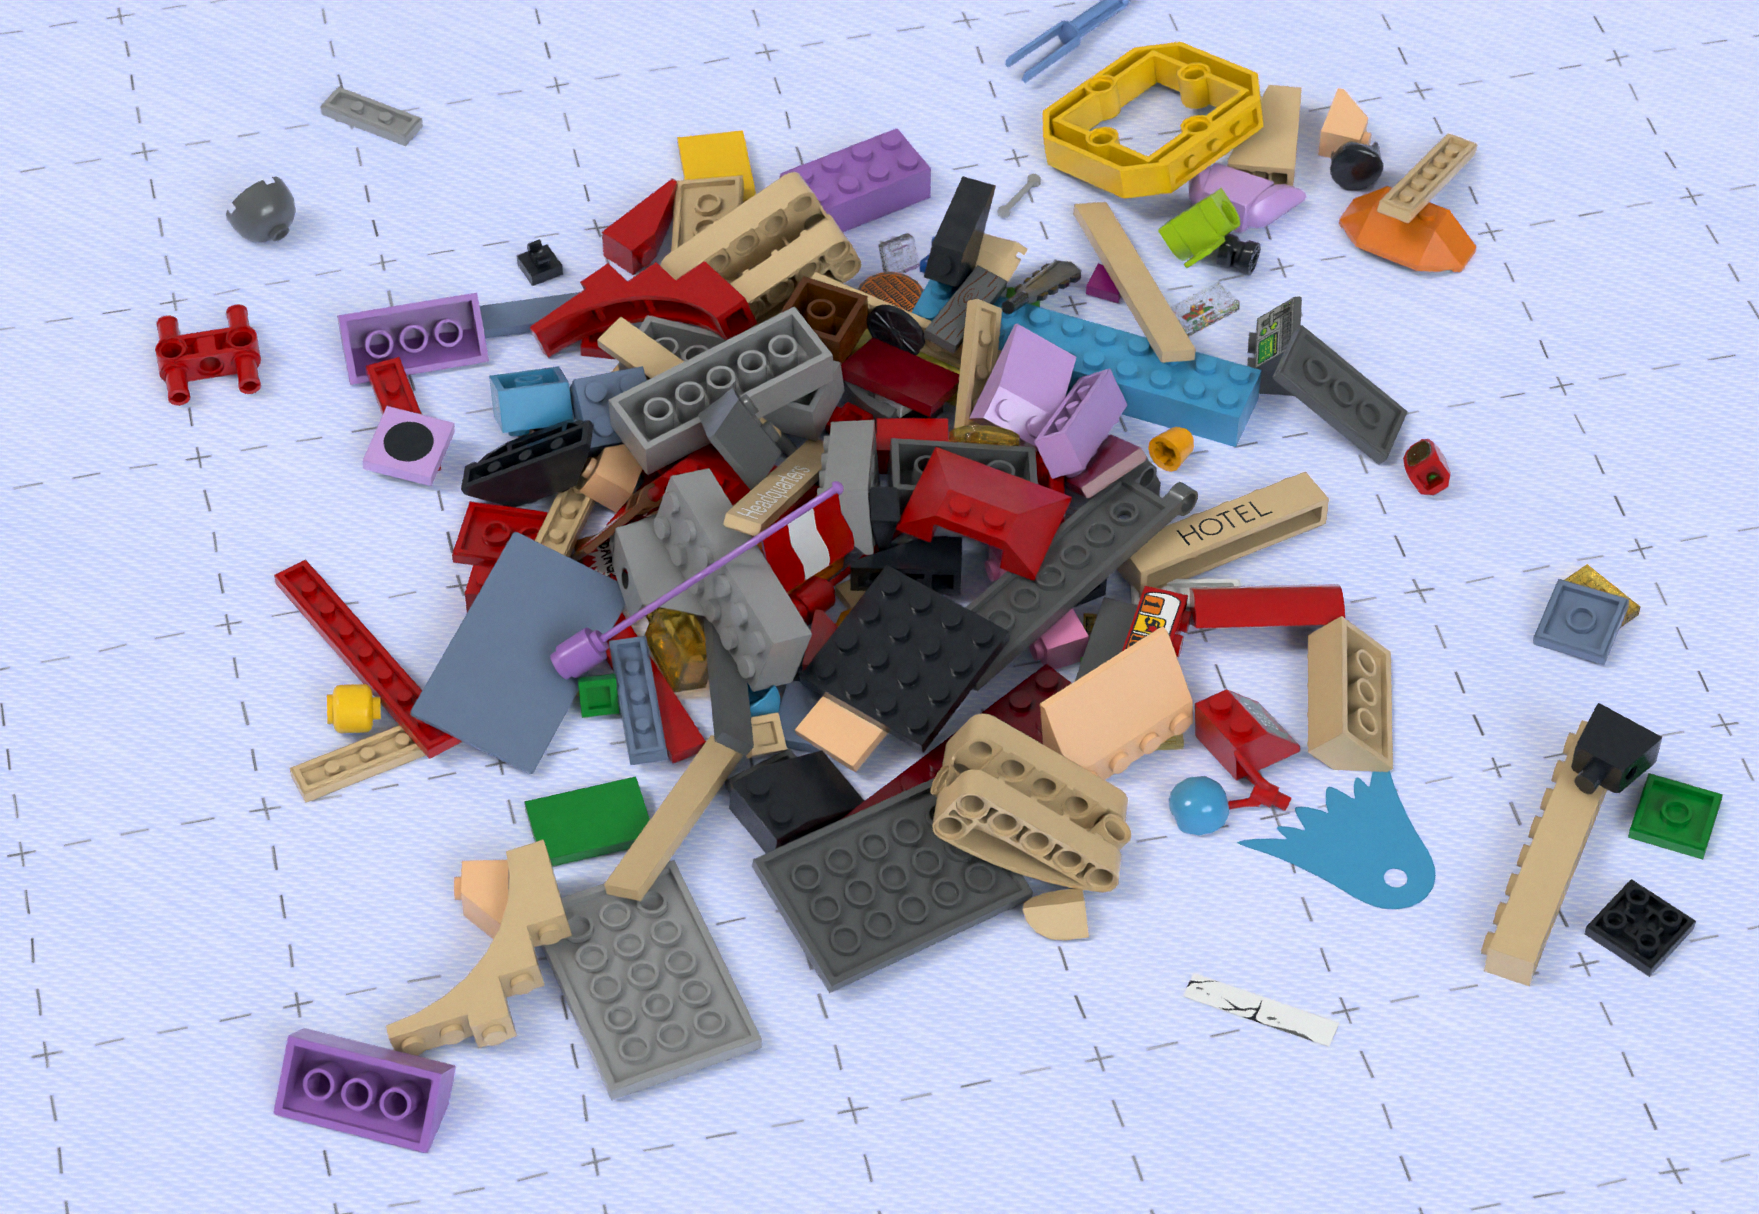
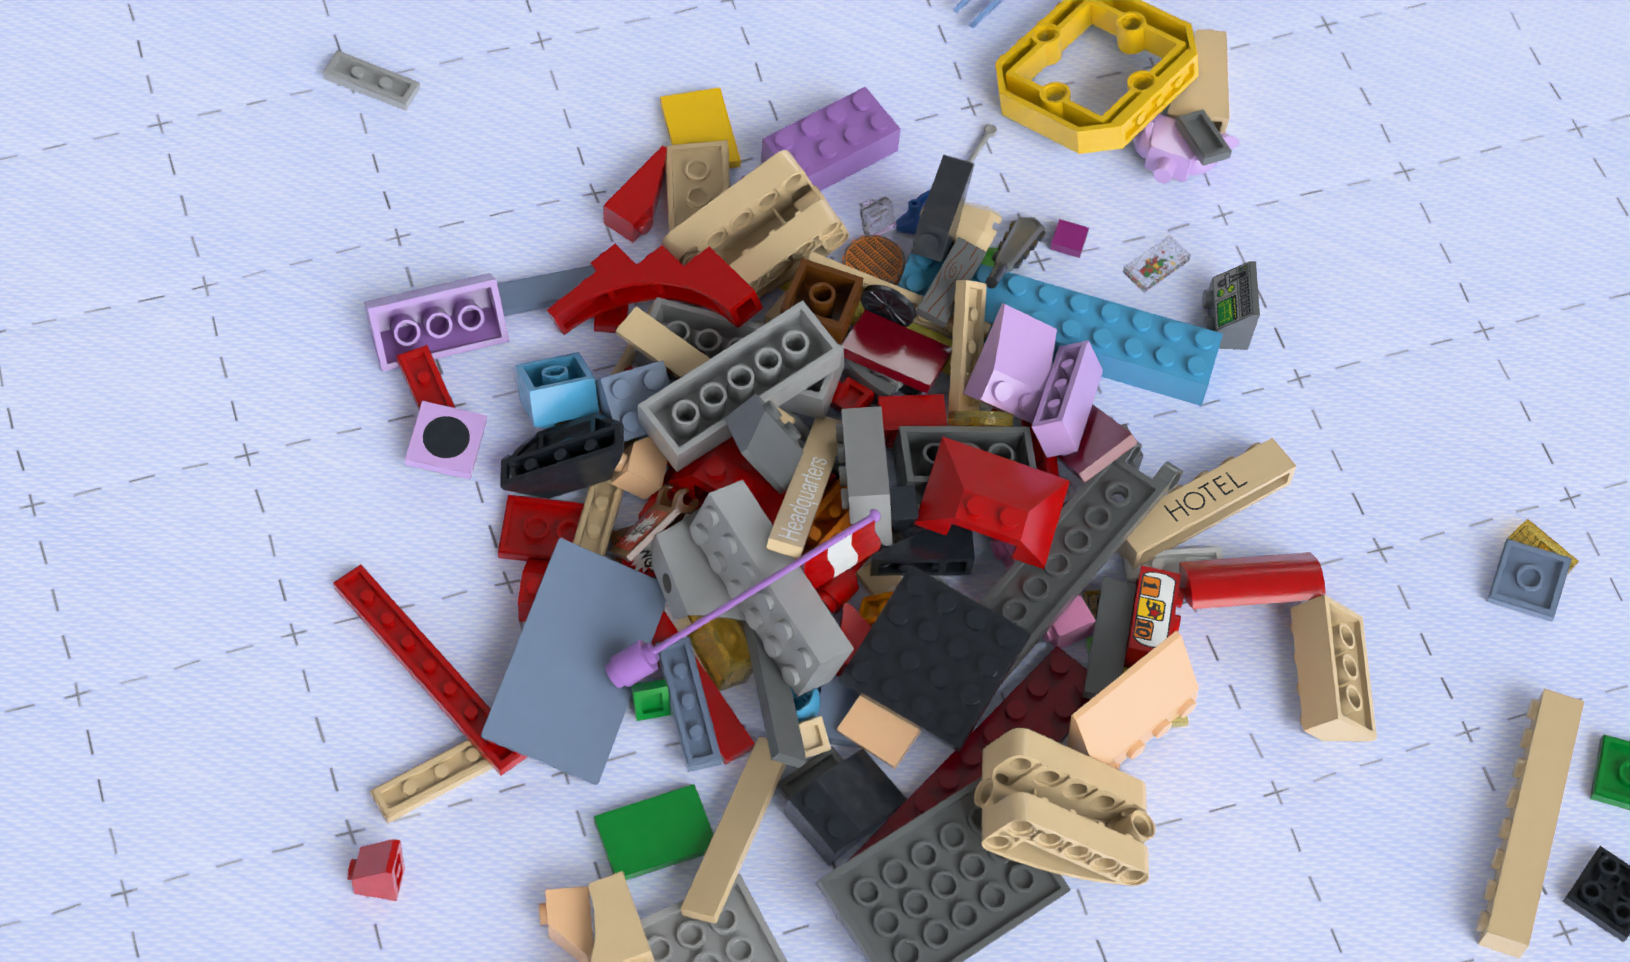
camera: 10 degrees left, 10 degrees up
(208, 354) = (245, 347): red piece -> none
(263, 211) = (283, 193): dark grey cylinder -> none
(289, 837) = (378, 870): none -> slope
(352, 708) = (423, 726): yellow head -> none
(539, 263) = (545, 235): black tile -> none
(1058, 914) = (1095, 909): tan brick -> none
(1134, 282) = (1098, 243): tan tile -> none
(1171, 448) = (1146, 413): light orange hat -> none
(1199, 805) = (1209, 788): dark azure hair -> none
(1201, 228) = (1152, 185): lime piece -> none
(1238, 254) = (1185, 205): black wheel -> none
(1239, 723) = (1241, 713): red slope -> none
(1261, 184) = (1203, 137): none -> dark grey tile
(1262, 792) = (1263, 770): red plant -> none
(1340, 394) = (1296, 357): dark grey tile -> none
(1343, 124) = (1267, 71): light nougat slope -> none
(1356, 165) = (1282, 110): black hair -> none
(1358, 845) = (1354, 819): dark azure piece -> none
(1427, 178) = (1350, 125): tan tile -> none
(1427, 243) = (1332, 176): orange wedge -> none
(1427, 467) = (1377, 424): red rock -> none
(1613, 751) = (1577, 725): black torso -> none

